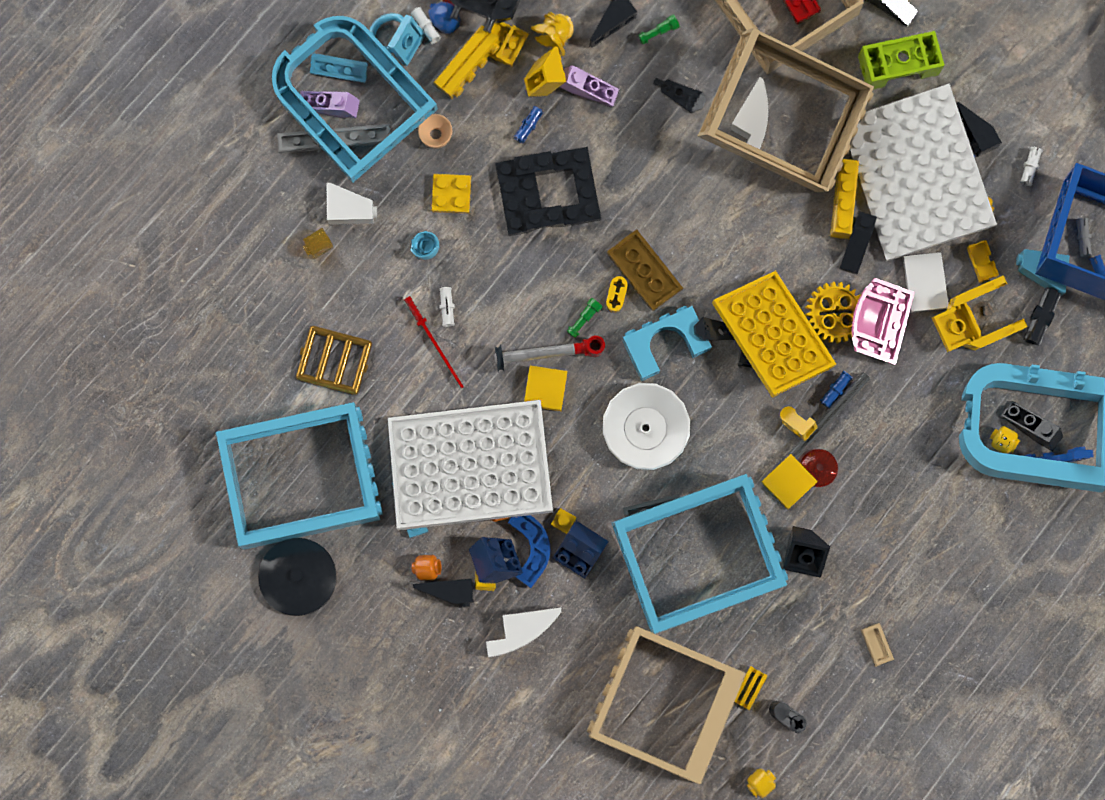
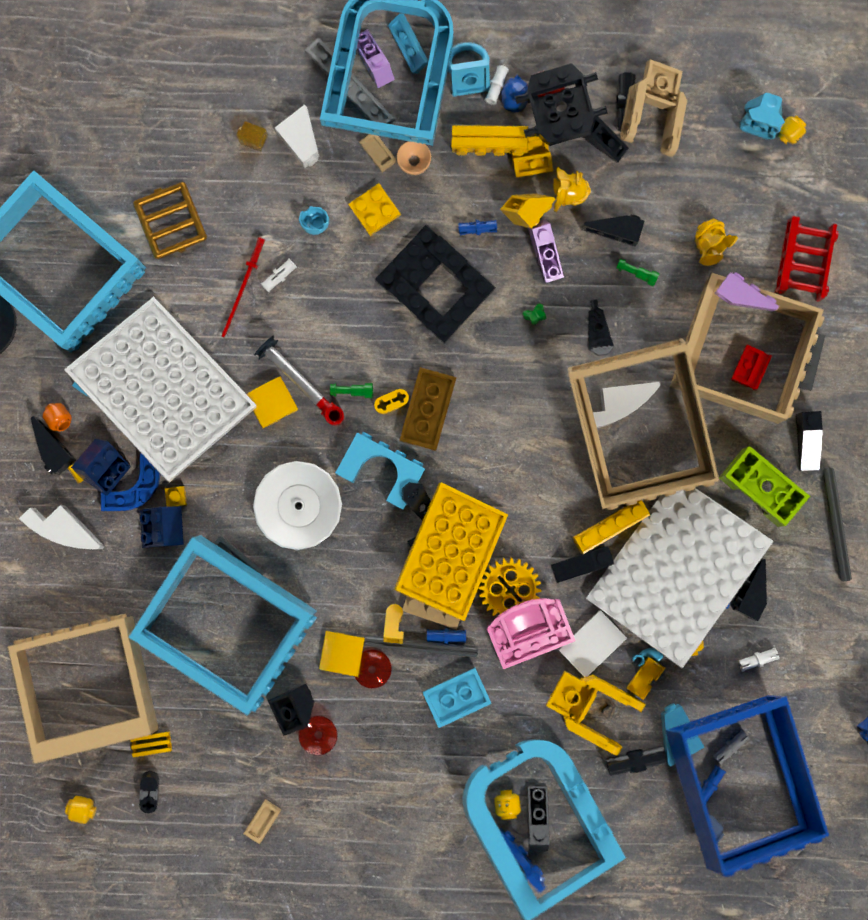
camera: 55 degrees right, 5 degrees up
(407, 156) = (378, 152): none -> tan tile
(633, 132) = (535, 315): none -> green piece
(806, 389) = (424, 611): none -> tan plate
(850, 544) = (315, 745): none -> clear red dish
(891, 417) = (456, 697): none -> medium azure plate
(966, 241) = (651, 652): none -> medium azure arm
(970, 29) = (837, 524): none -> dark grey axle

